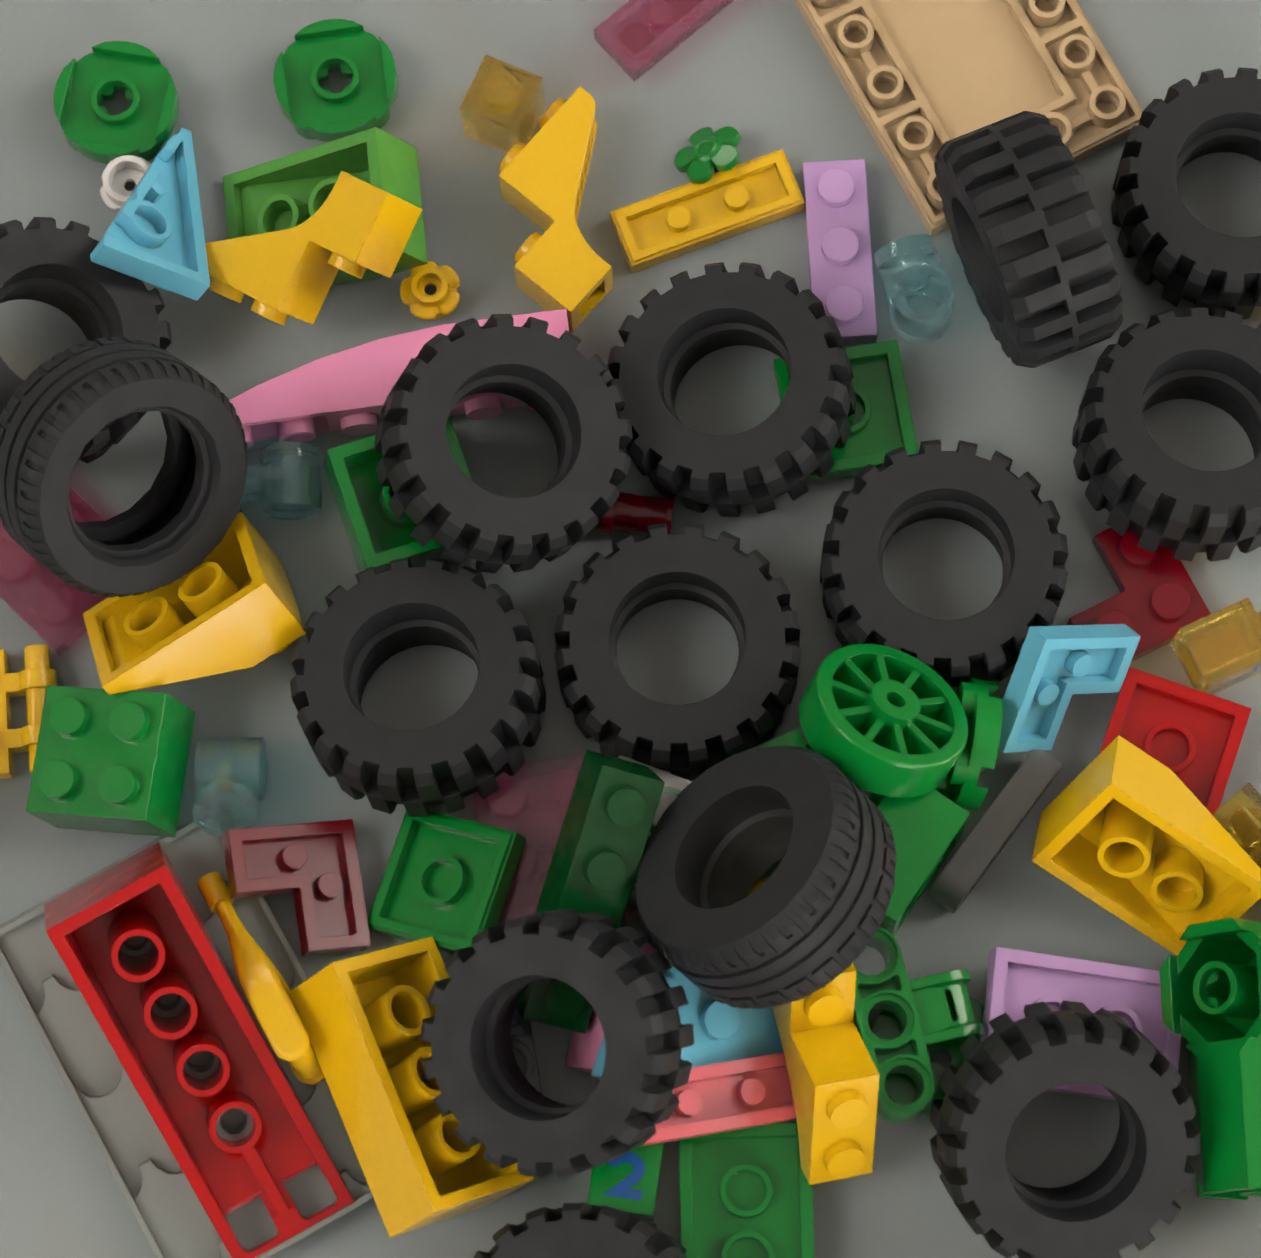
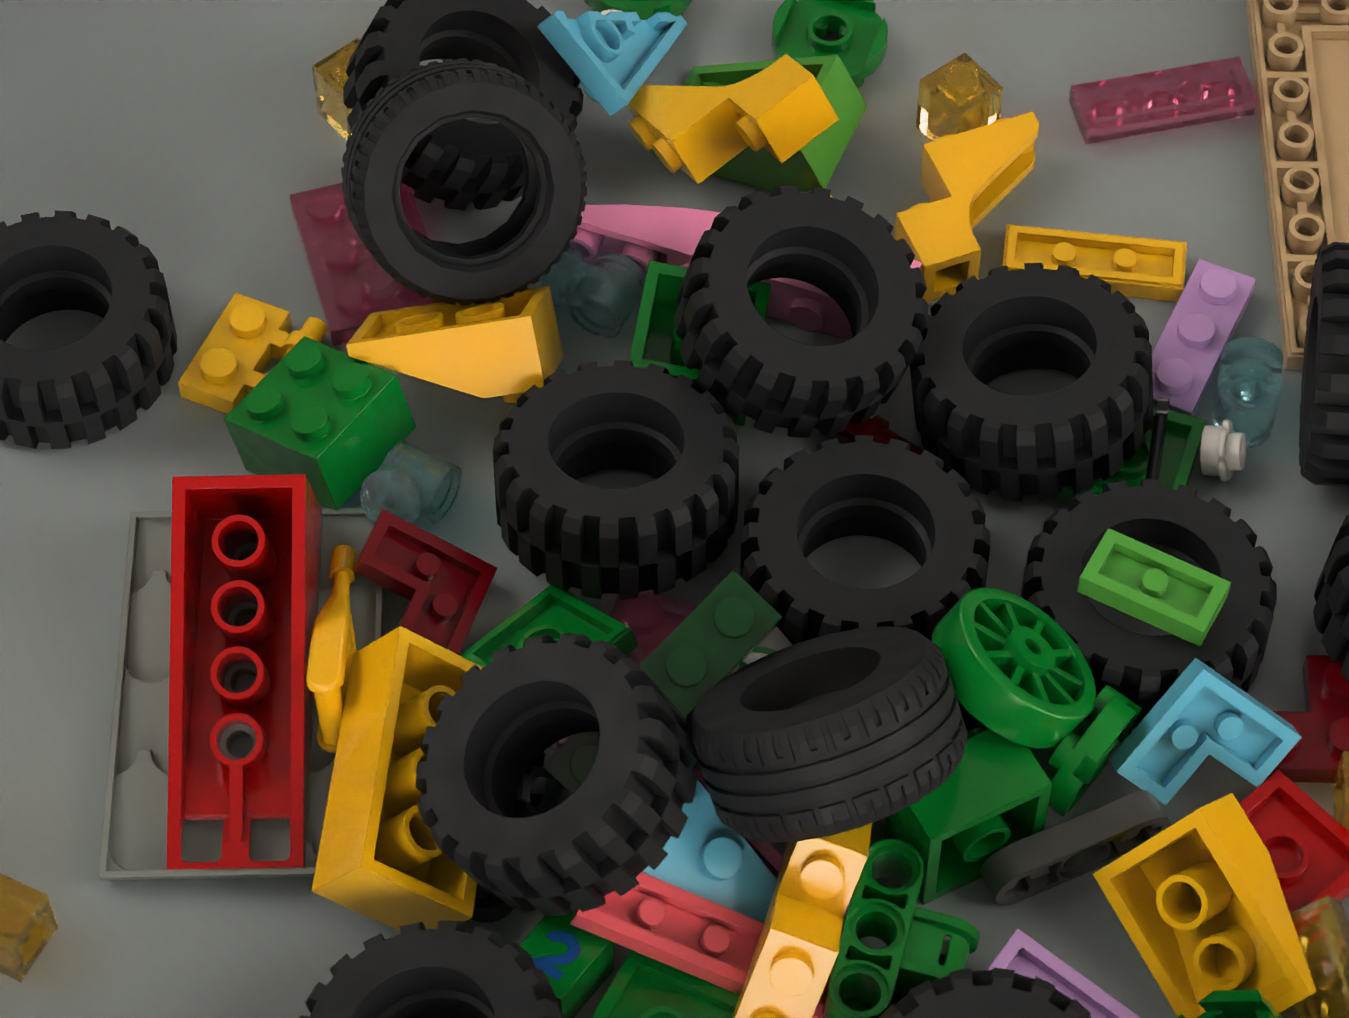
camera: 25 degrees right, 20 degrees down
(708, 153) = (1119, 218): green plant -> none
(858, 361) = (1158, 436): none -> black hinge
(924, 362) = (1222, 450): none -> white plate
(960, 574) = (1154, 587): none -> bright green plate

